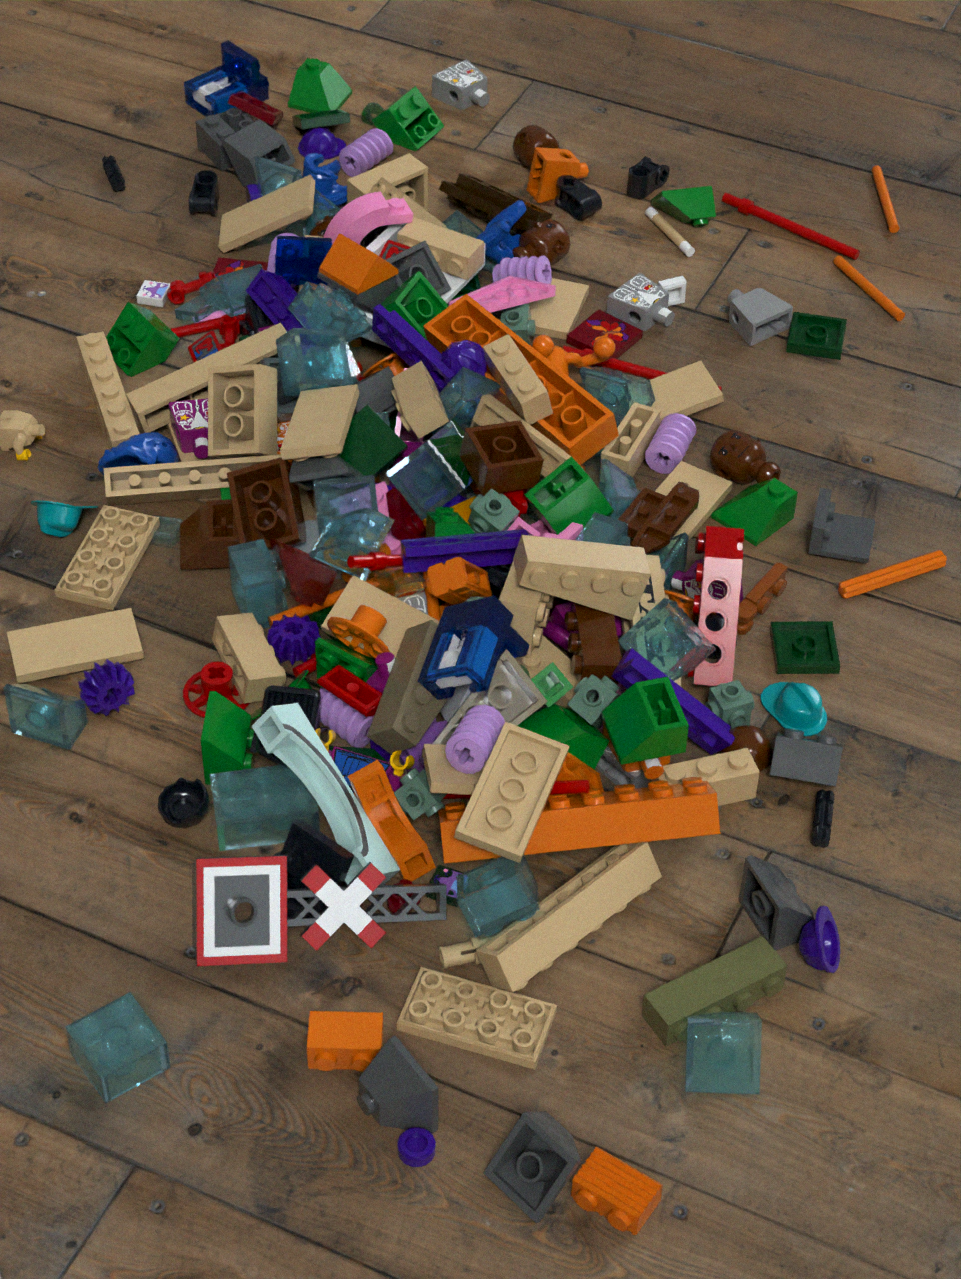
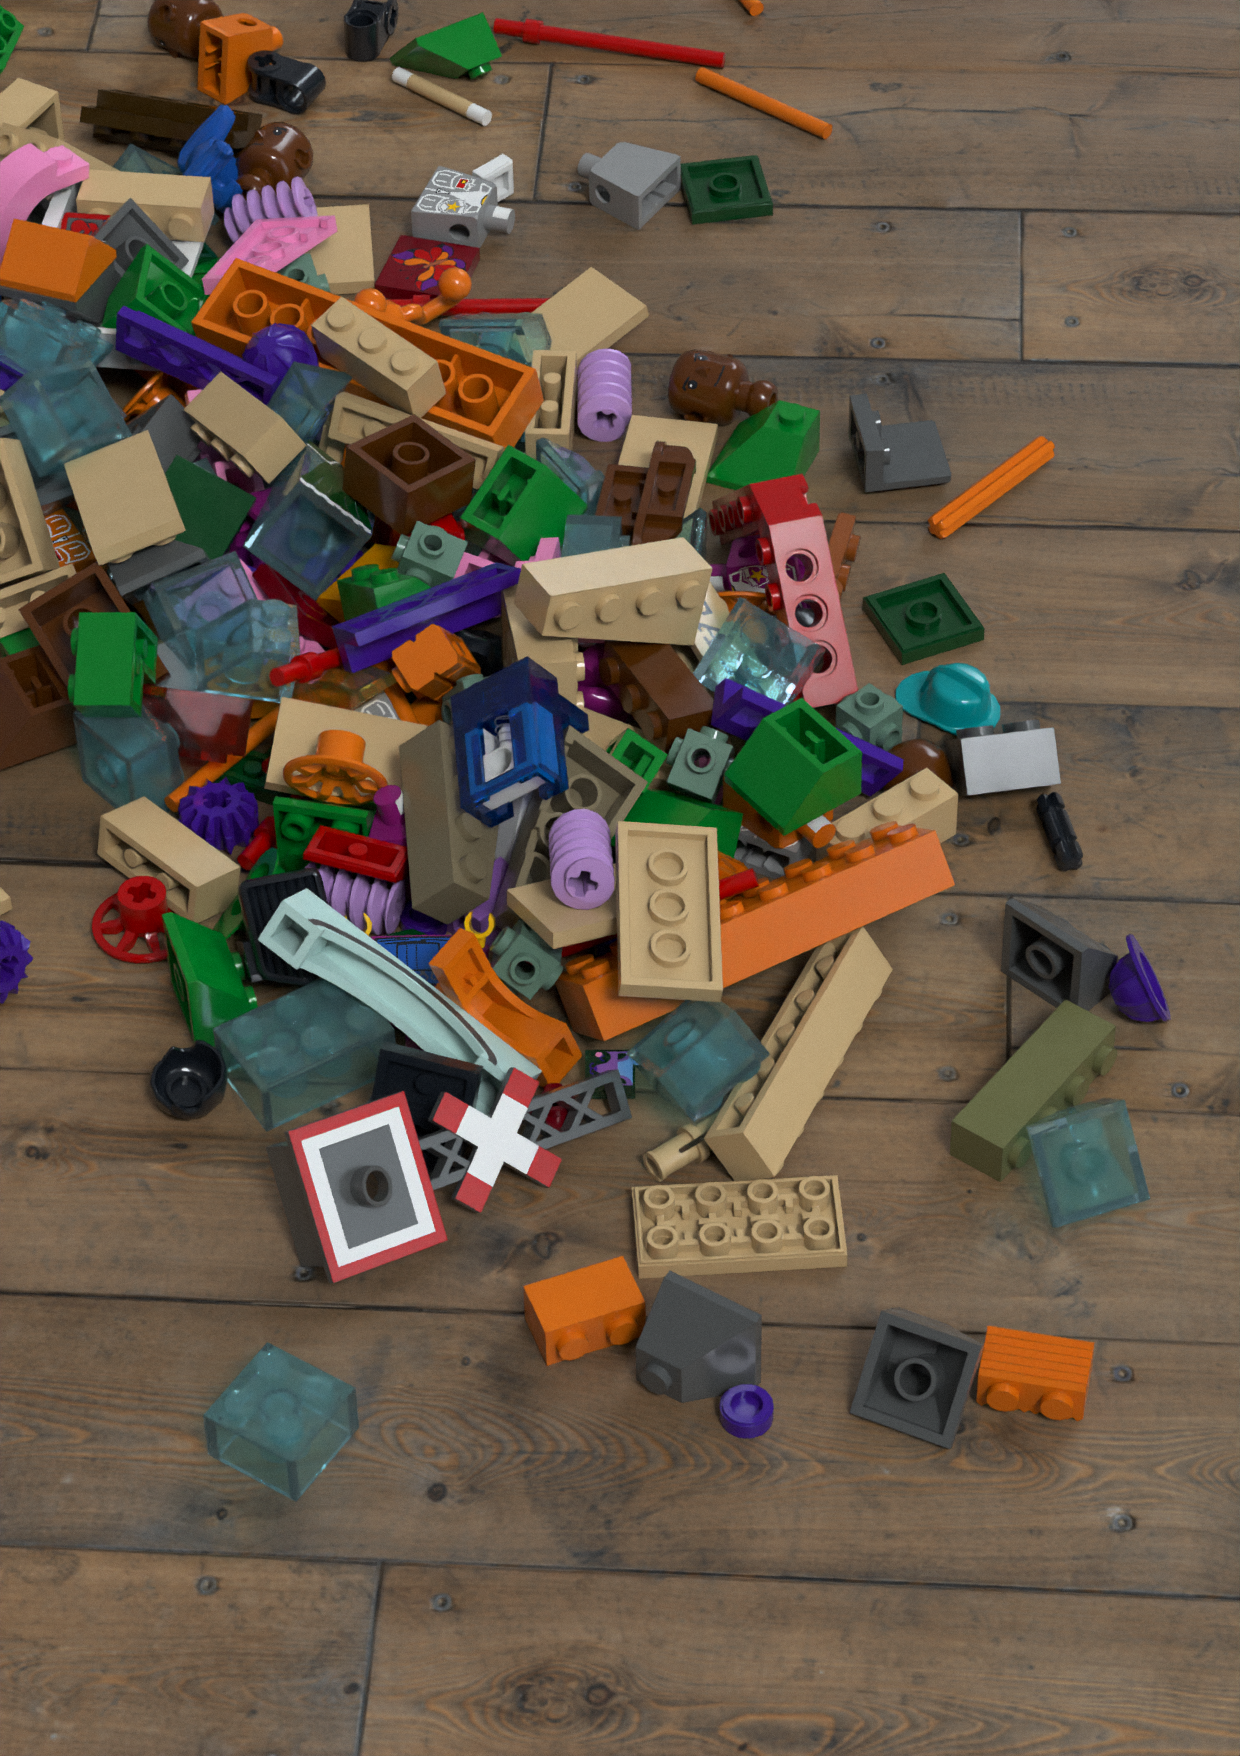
camera: 20 degrees left, 0 degrees up
(258, 521) = (112, 663): none -> green brick

